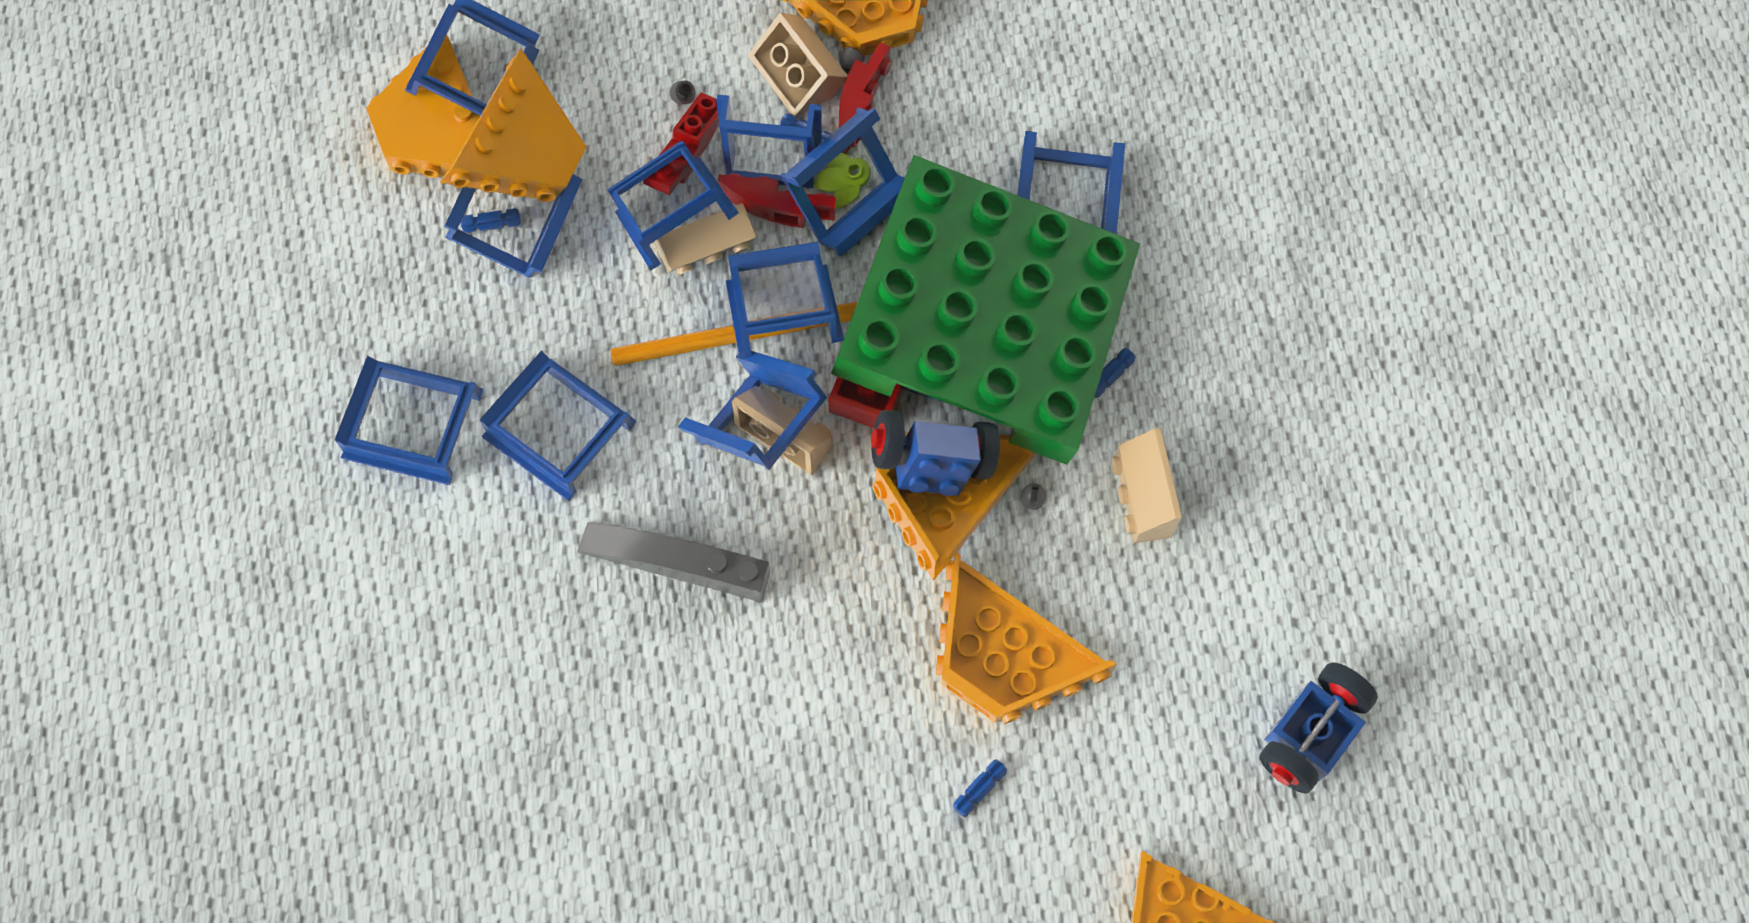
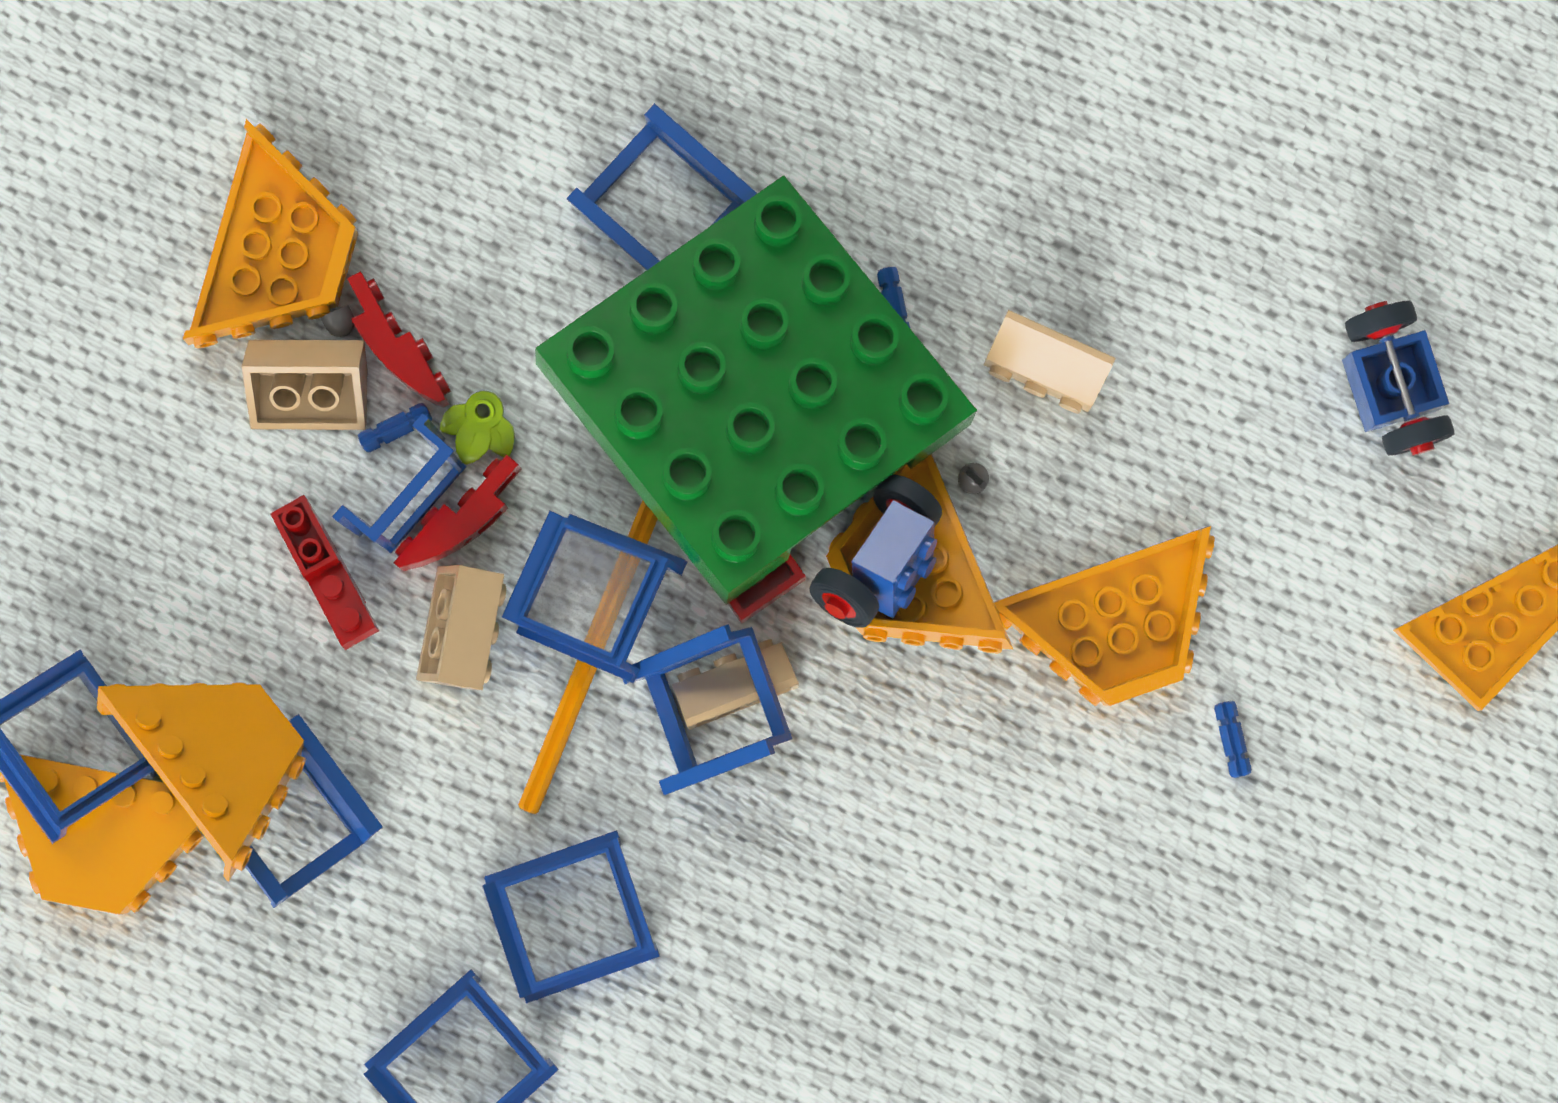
camera: 55 degrees left, 15 degrees up
(490, 220) = (276, 835): blue axle -> none
(643, 239) = (442, 591): blue piece -> none
(678, 559) = (801, 889): dark grey slope -> none
(686, 89) = (251, 525): dark grey hinge -> none
(871, 208) = (539, 430): blue piece -> none

